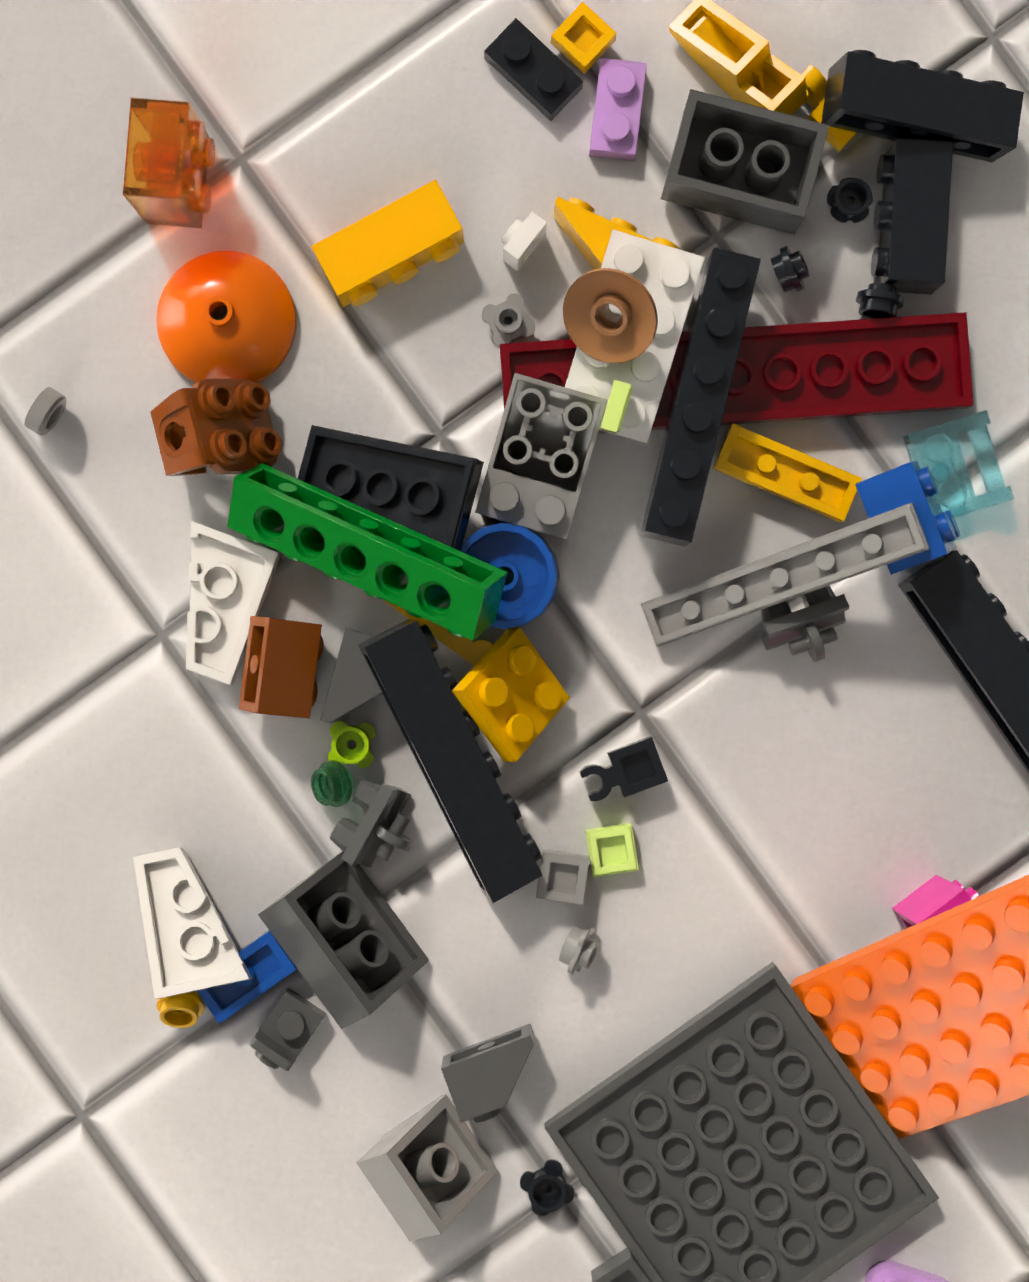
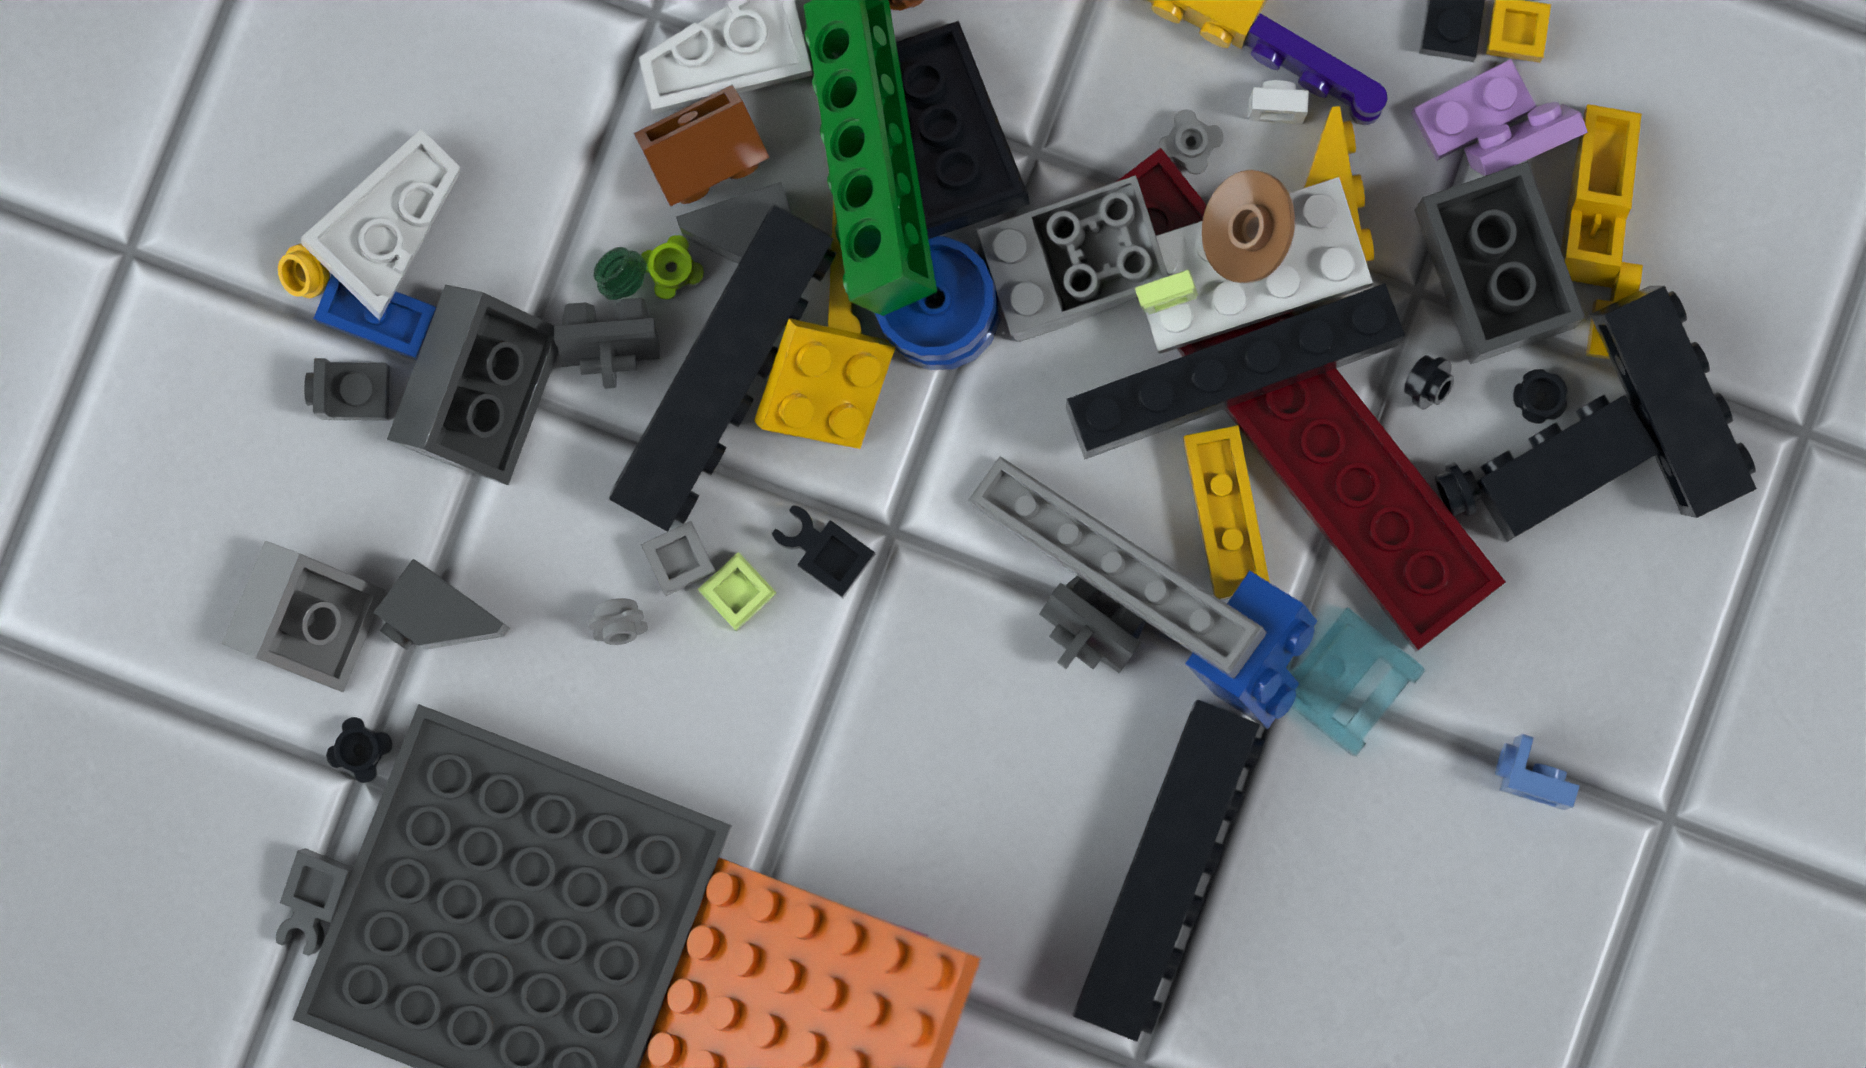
camera: 65 degrees right, 5 degrees down
(518, 196) = (1317, 69): none -> dark purple plate
(666, 85) = (1506, 147): none -> lavender plate

